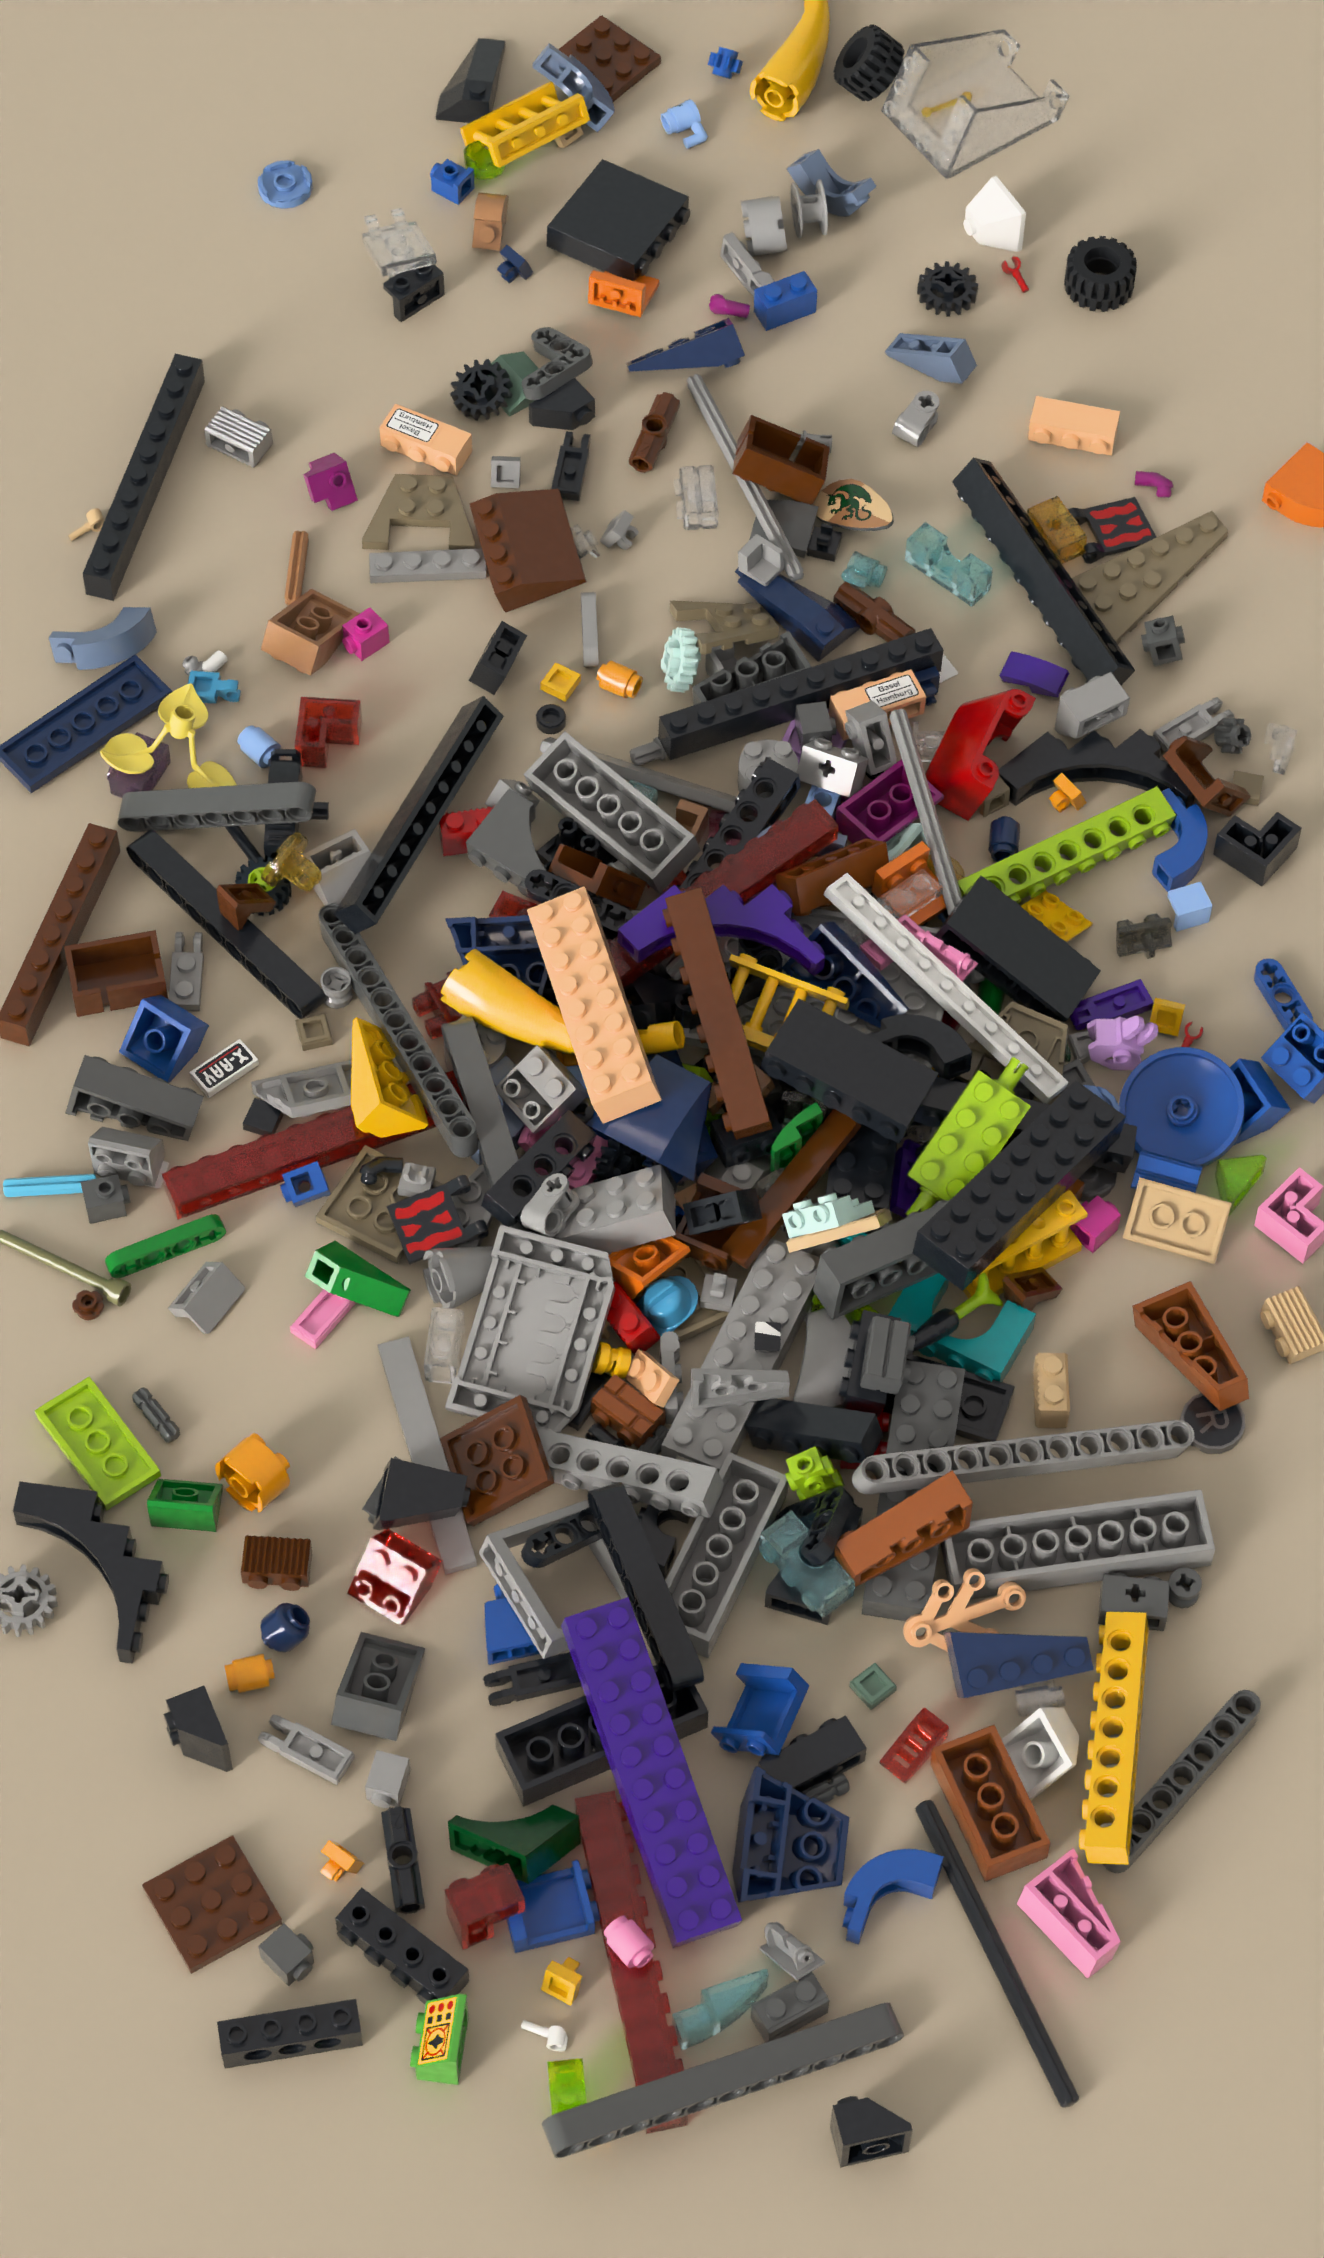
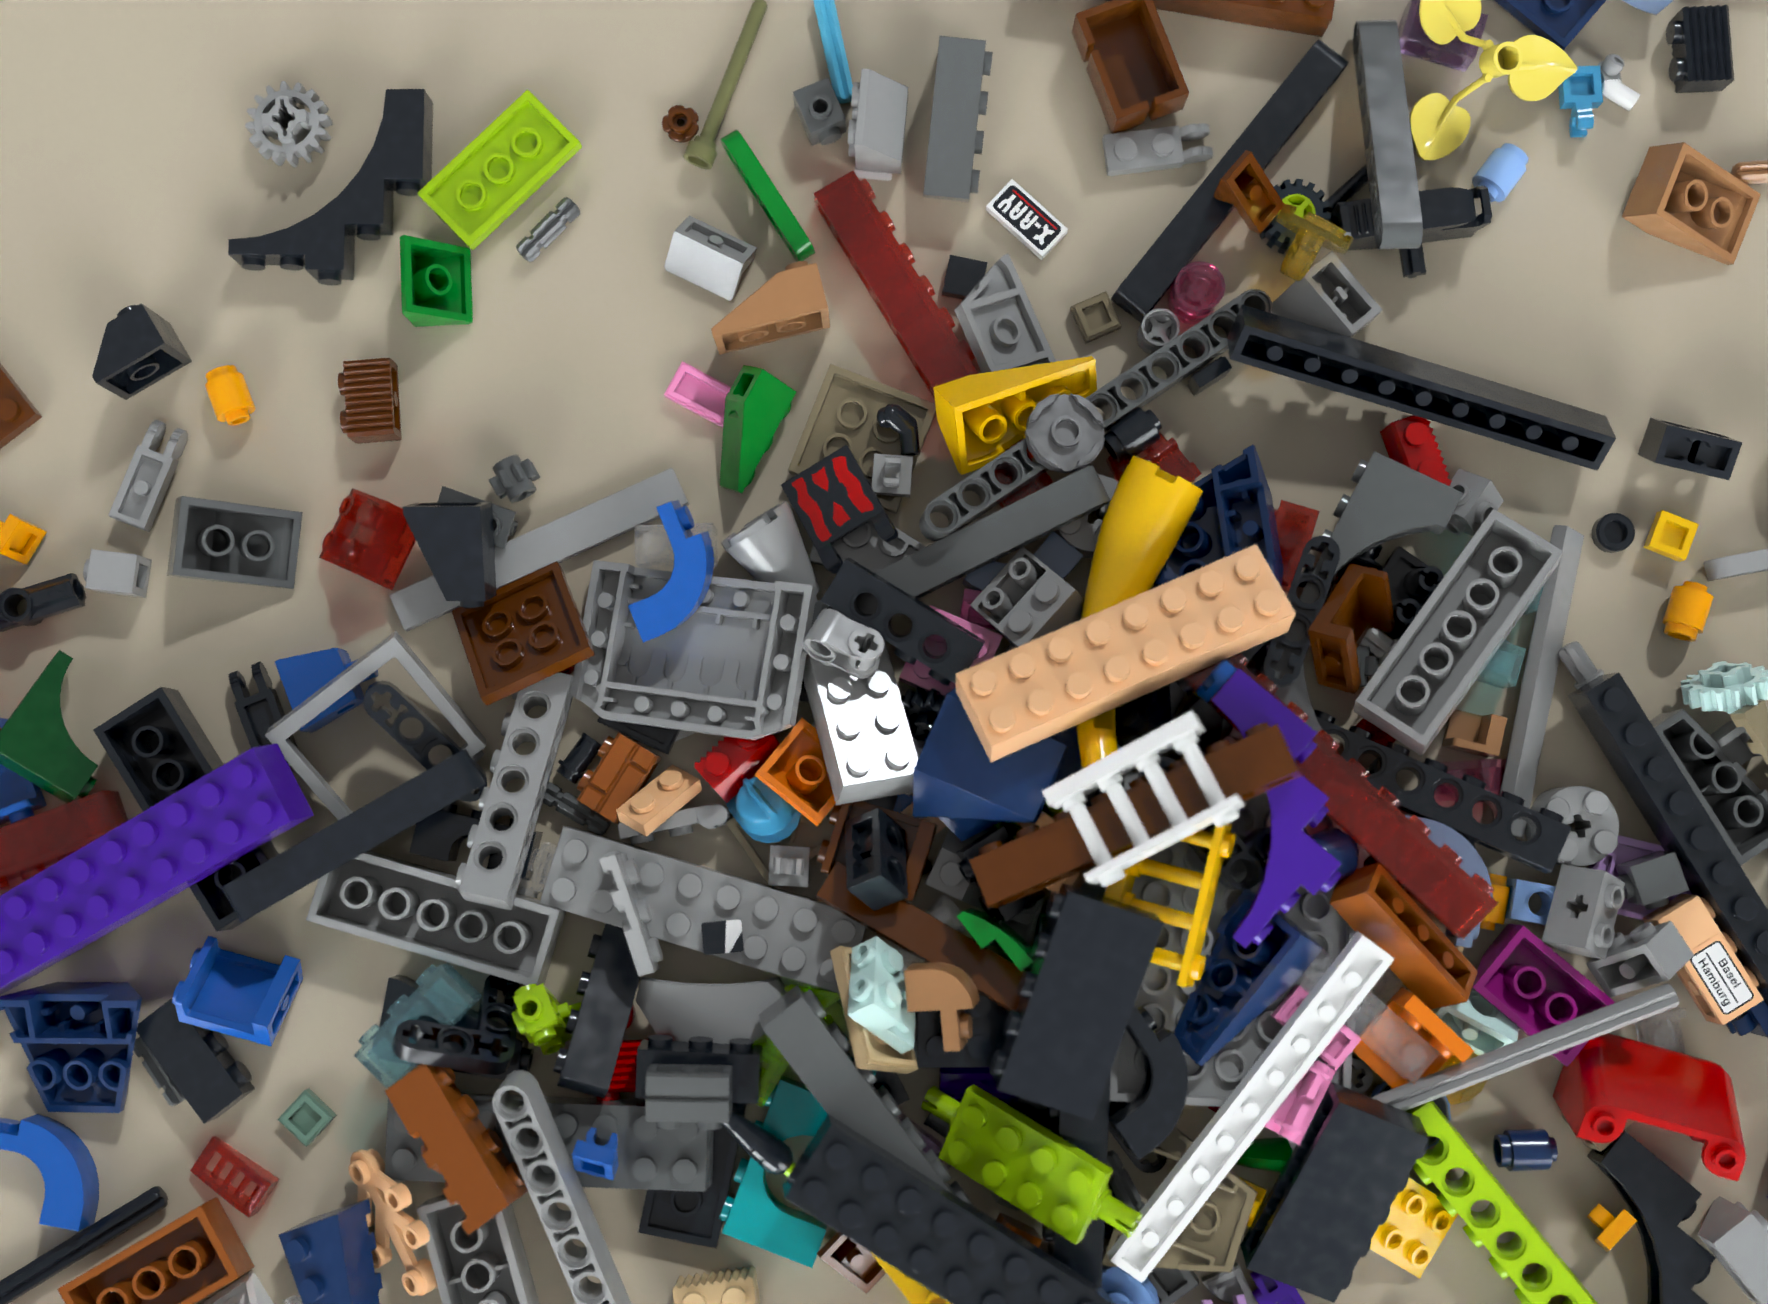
camera: 85 degrees right, 25 degrees up
(163, 1037) = (1055, 137): blue slope -> none
(192, 607) = (1700, 49): none -> black brick
(253, 1473) = (469, 352): light orange brick -> none
(262, 1230) = (780, 309): none -> medium nougat slope
(285, 1627) = (285, 424): dark blue head -> none
(309, 1173) = (872, 359): blue brick -> none
(312, 952) = (1196, 292): none -> clear pink wheel
(326, 722) = (1544, 240): clear red brick -> none
(365, 634) = (1698, 273): dark pink brick -> none
(365, 1459) = (514, 478): none -> dark grey gear
(380, 955) = (1209, 375): none -> black tile
(411, 1041) = (1065, 432): none -> flat silver tile
(419, 1006) = (1132, 434): none -> black brick
(481, 1321) = (688, 581): none -> blue arch
(612, 1360) = (680, 750): yellow wheel -> none
(623, 952) = (1215, 680): none -> blue tile
(676, 990) = (1144, 756): none -> white fence
(833, 1166) = (946, 989): none -> medium nougat brick
(928, 1430) = (596, 1159): none -> blue tile

